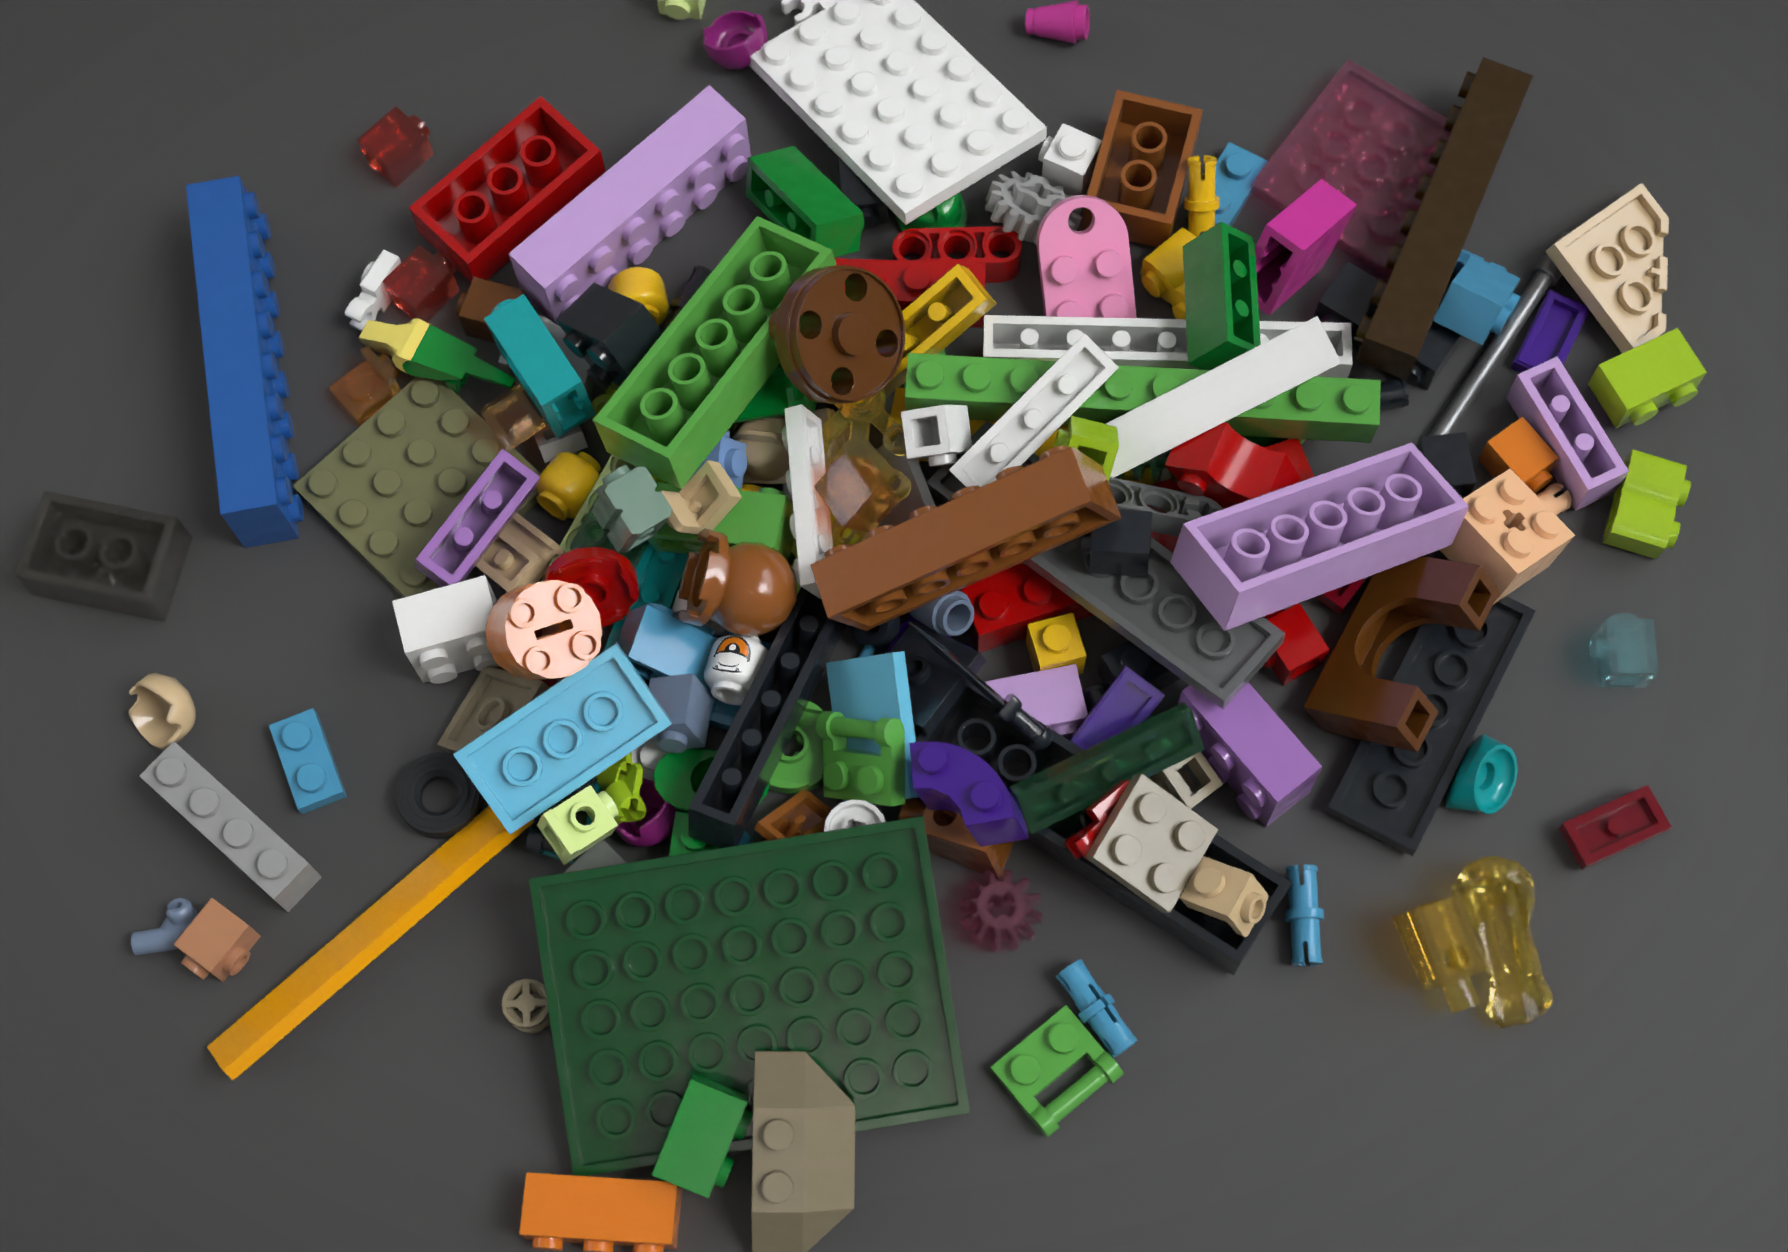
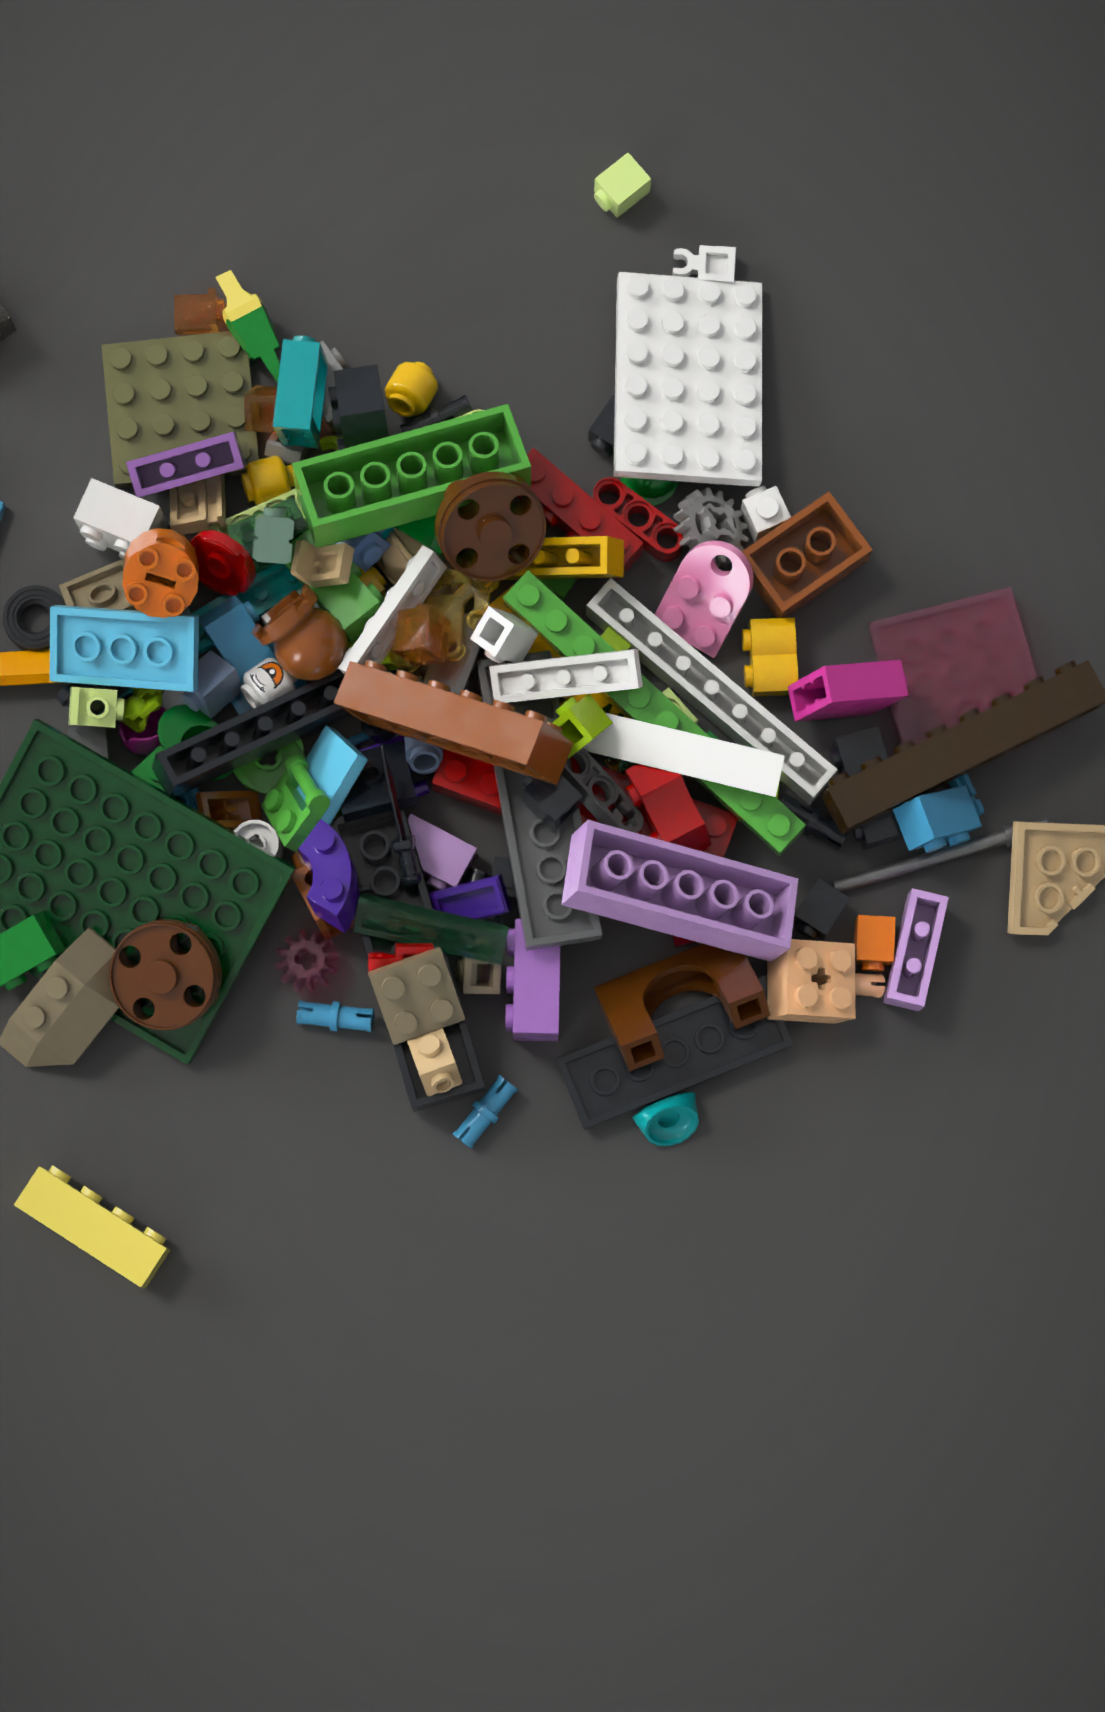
camera: 35 degrees right, 10 degrees up
(243, 363) = (131, 237): blue brick -> none
(373, 294) = (256, 250): white plate -> none
(396, 146) = (345, 158): clear red brick -> none
(422, 284) = (285, 270): clear red brick -> none
(479, 303) = (313, 319): reddish brown brick -> none
(507, 190) = (387, 249): red brick -> none
(634, 204) = (455, 325): lavender brick -> none
(734, 39) = (622, 252): magenta hair -> none
(803, 200) = (564, 409): green brick -> none
(878, 1032) = (165, 974): none -> reddish brown piece
(1045, 1058) = (260, 1069): bright green plate -> none
(1055, 643) = (477, 826): yellow brick -> none
(1059, 21) = (846, 408): dark pink cone -> none
(1075, 942) = (335, 1016): none -> dark azure pin
(1096, 1008) = (314, 1065): dark azure pin -> none
(1201, 199) = (821, 610): yellow pin -> none
(1220, 296) = (759, 690): green brick -> none
(1234, 176) = (853, 611): dark azure plate -> none
(1302, 645) = (622, 944): red brick -> none
(1438, 930) = (548, 1184): clear yellow torso -> none
(1499, 906) = (603, 1201): clear yellow hair -> none
(1551, 331) = (973, 878): dark purple tile -> none
(1615, 827) = (720, 1214): dark red plate -> none
(1624, 652) = (826, 1113): clear light blue brick -> none
(1646, 505) = (926, 1035): lime brick -> none
(1647, 379) = (1002, 957): lime brick -> none

